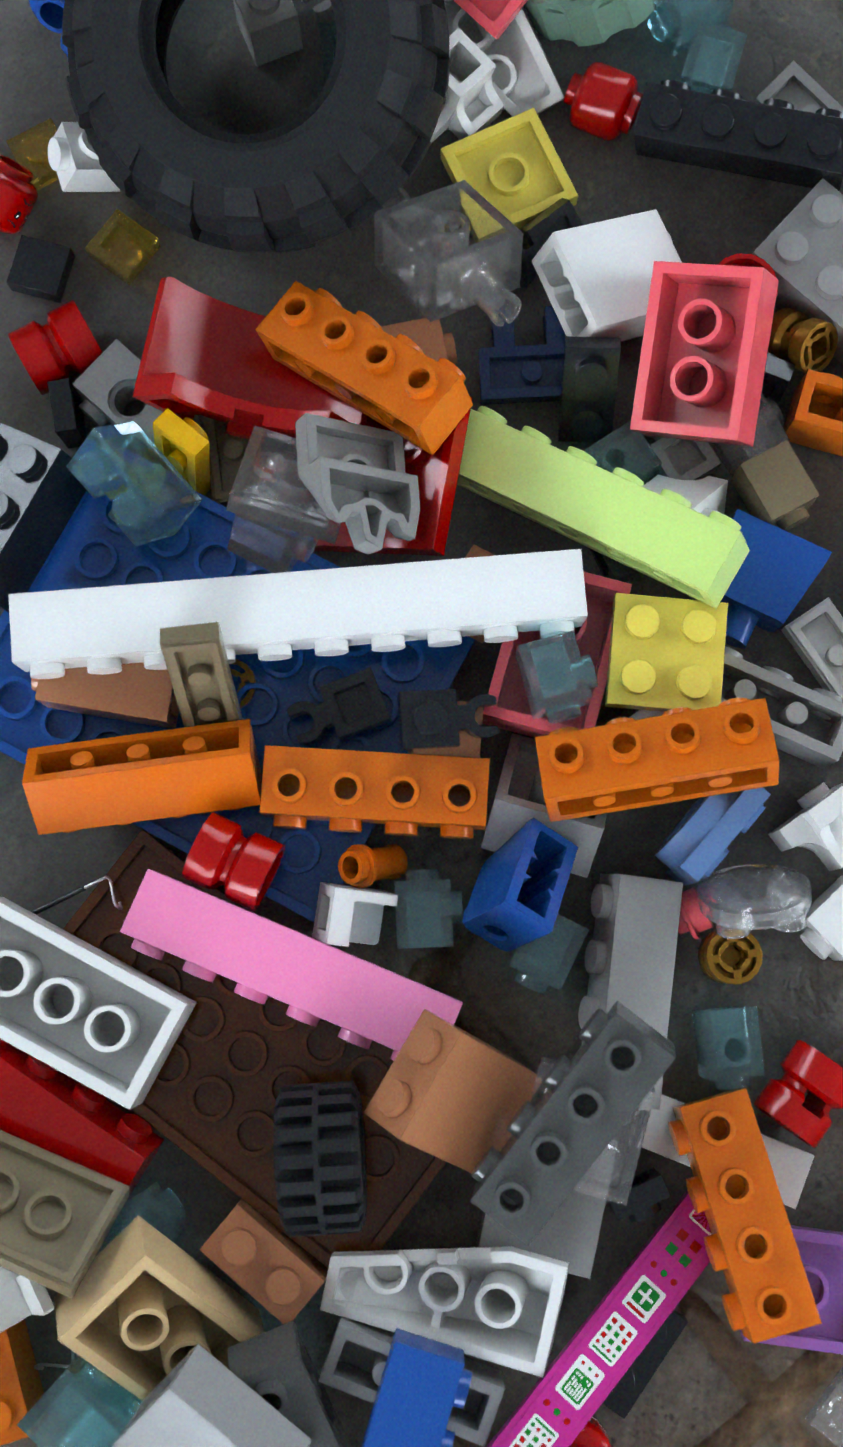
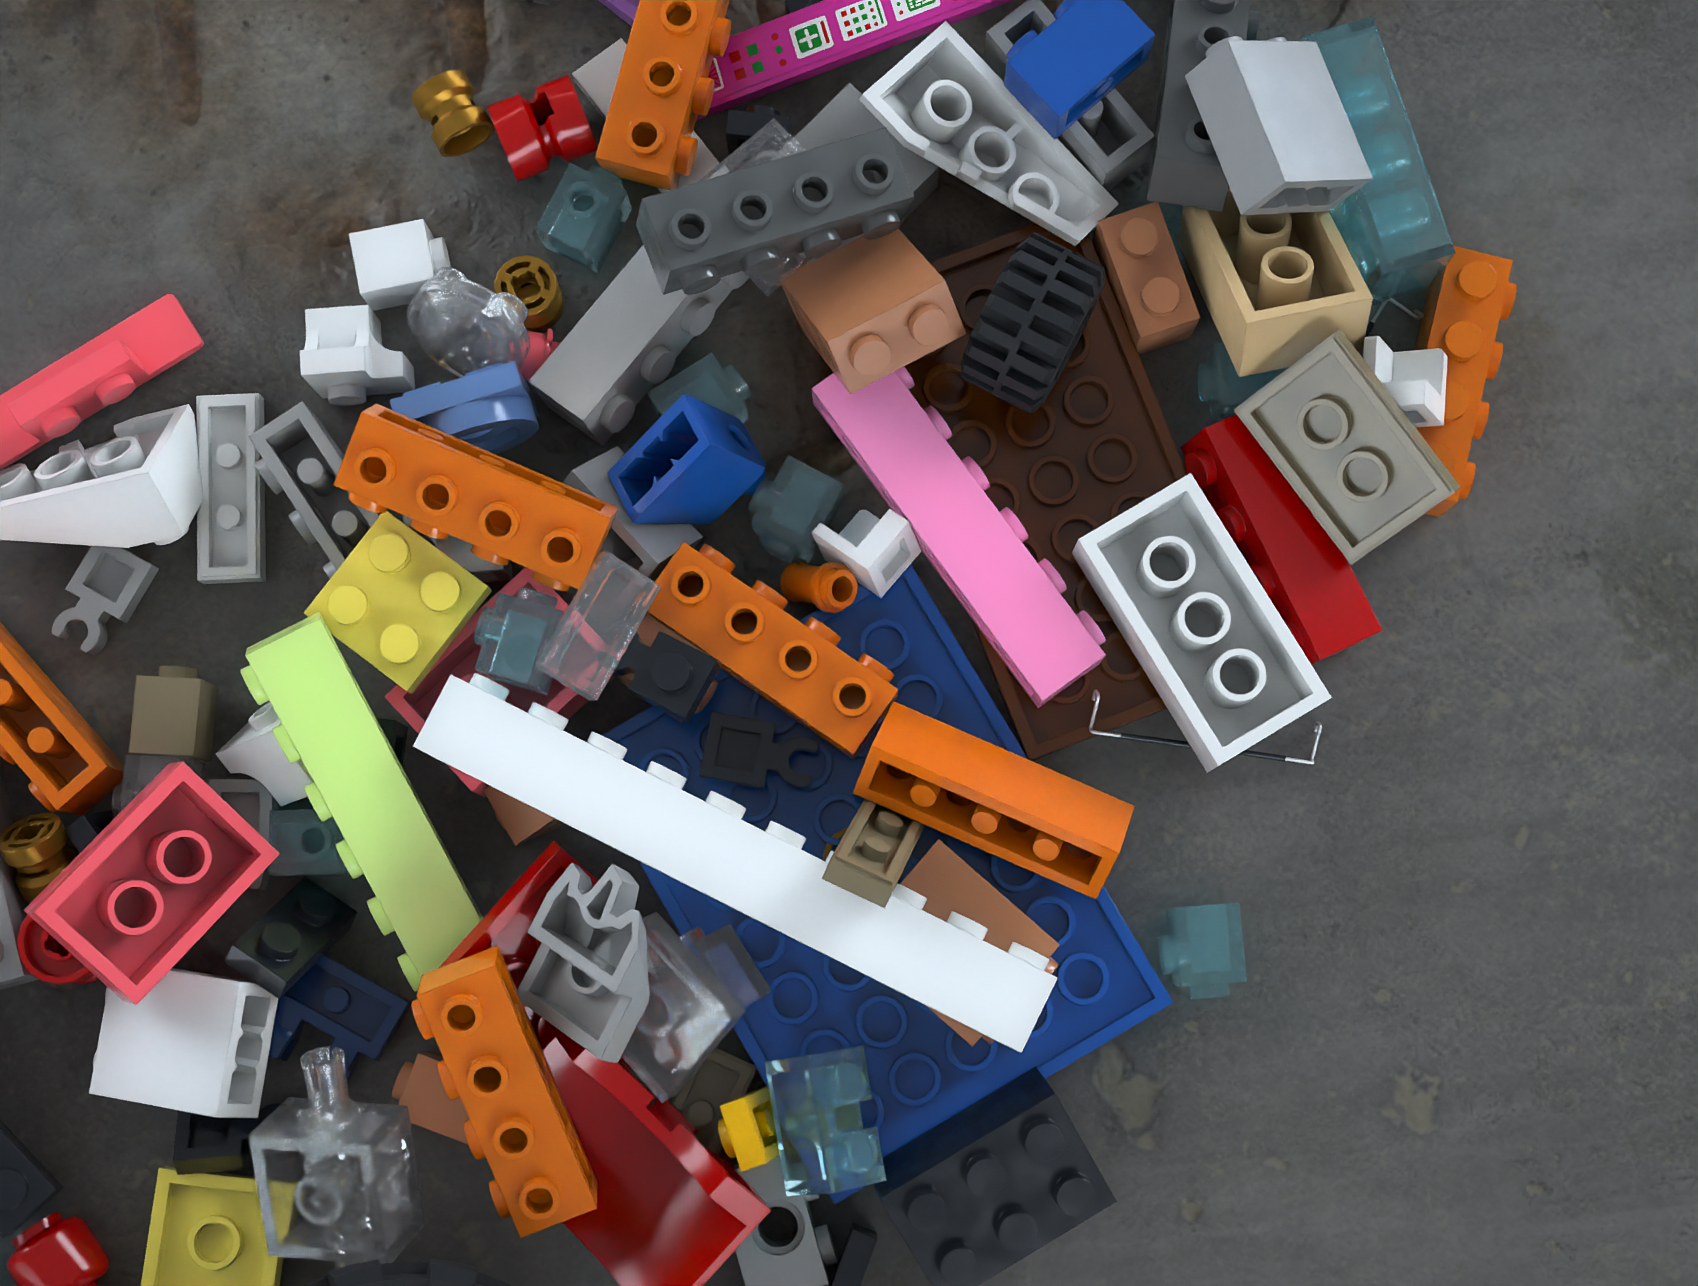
camera: 150 degrees left, 0 degrees up
(228, 859) = (949, 655): red wheel -> none
(503, 716) = (598, 626): none -> clear tile
(769, 579) = (227, 622): blue torso -> none

